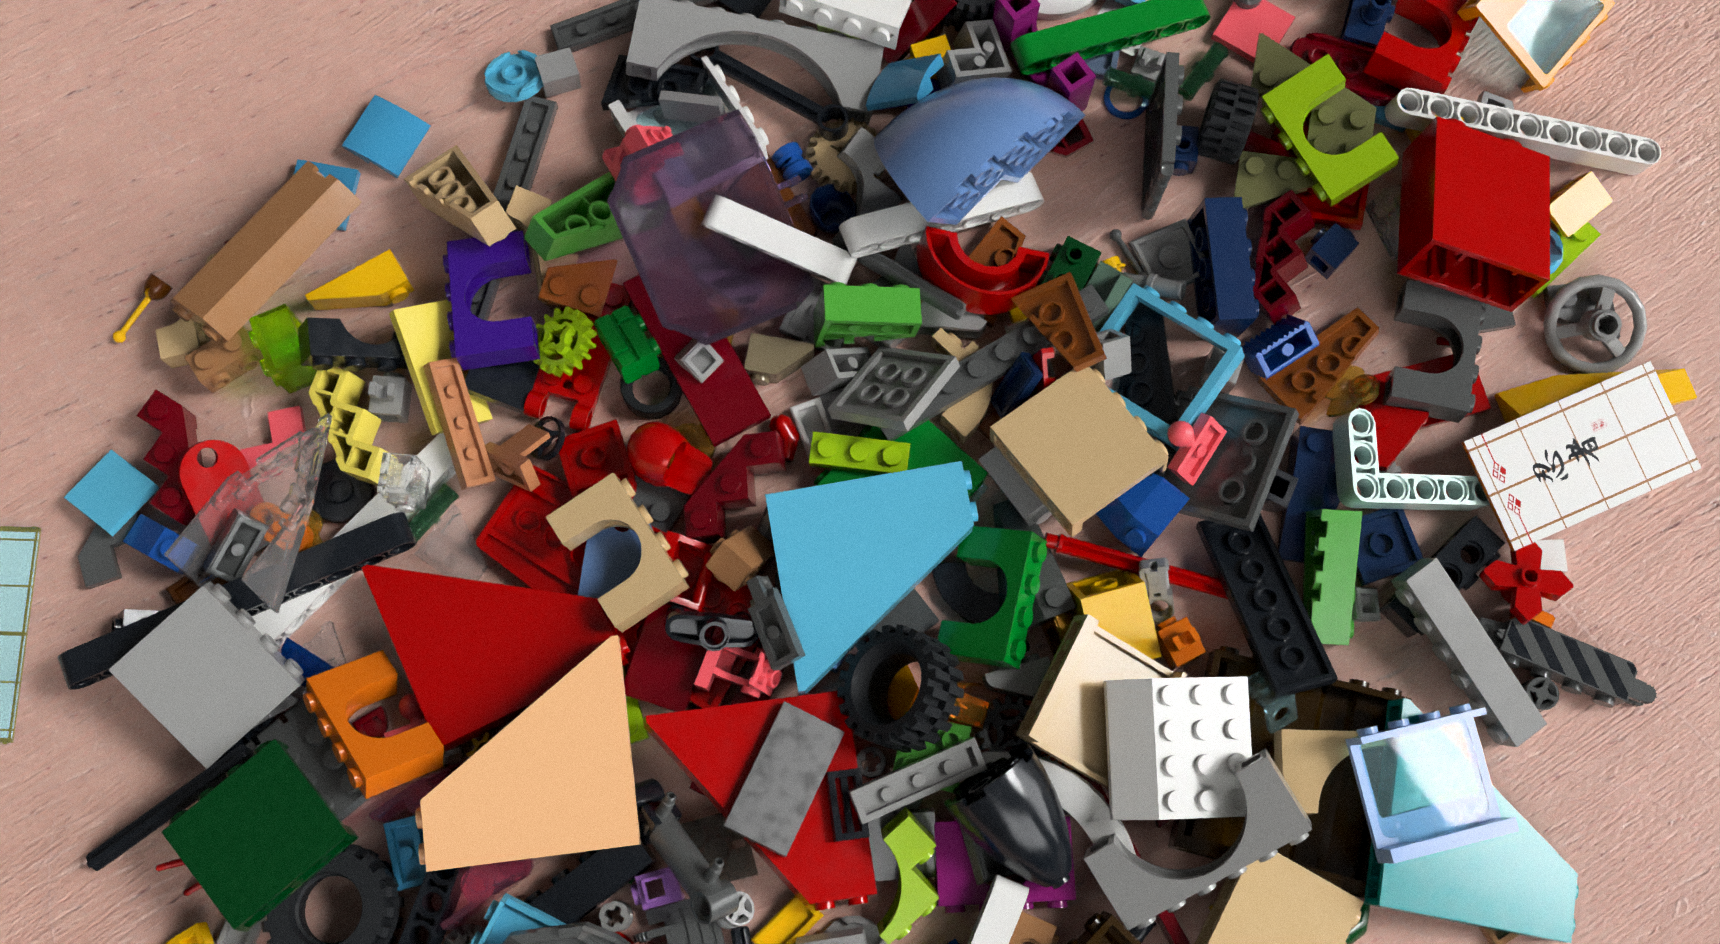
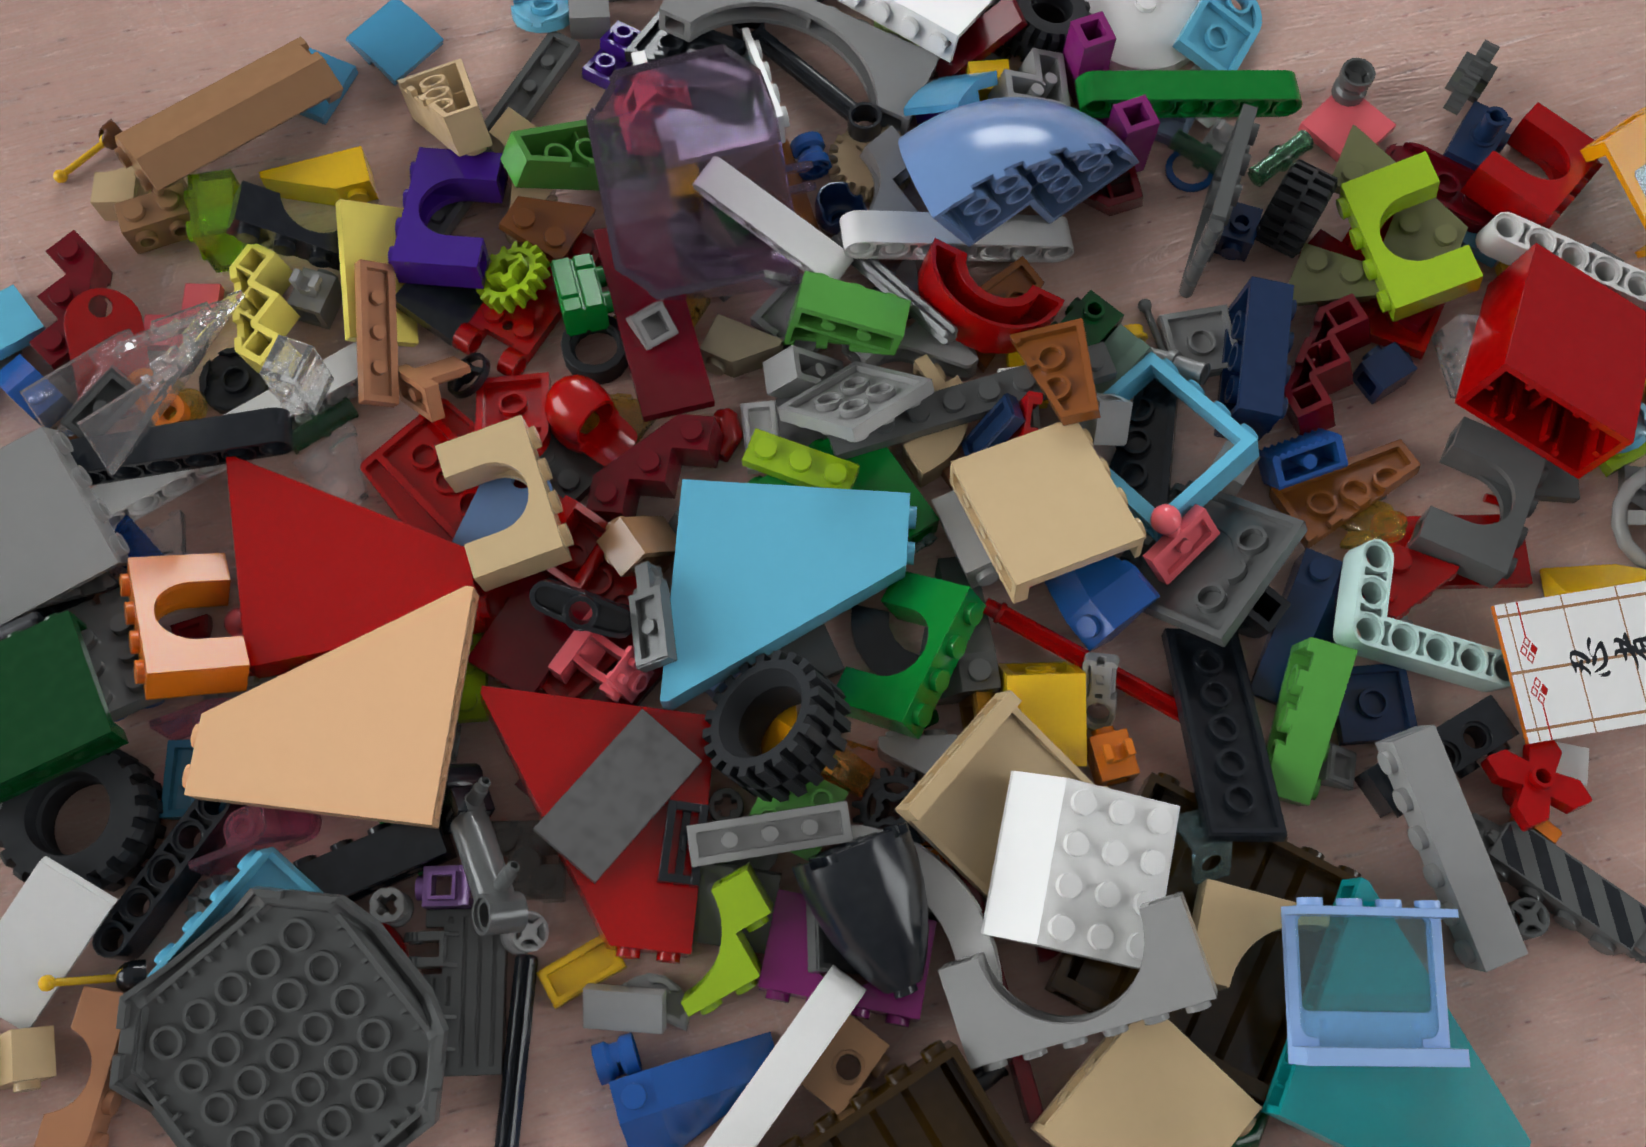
camera: 15 degrees right, 5 degrees down
(587, 111) = (611, 54): none -> dark purple slope

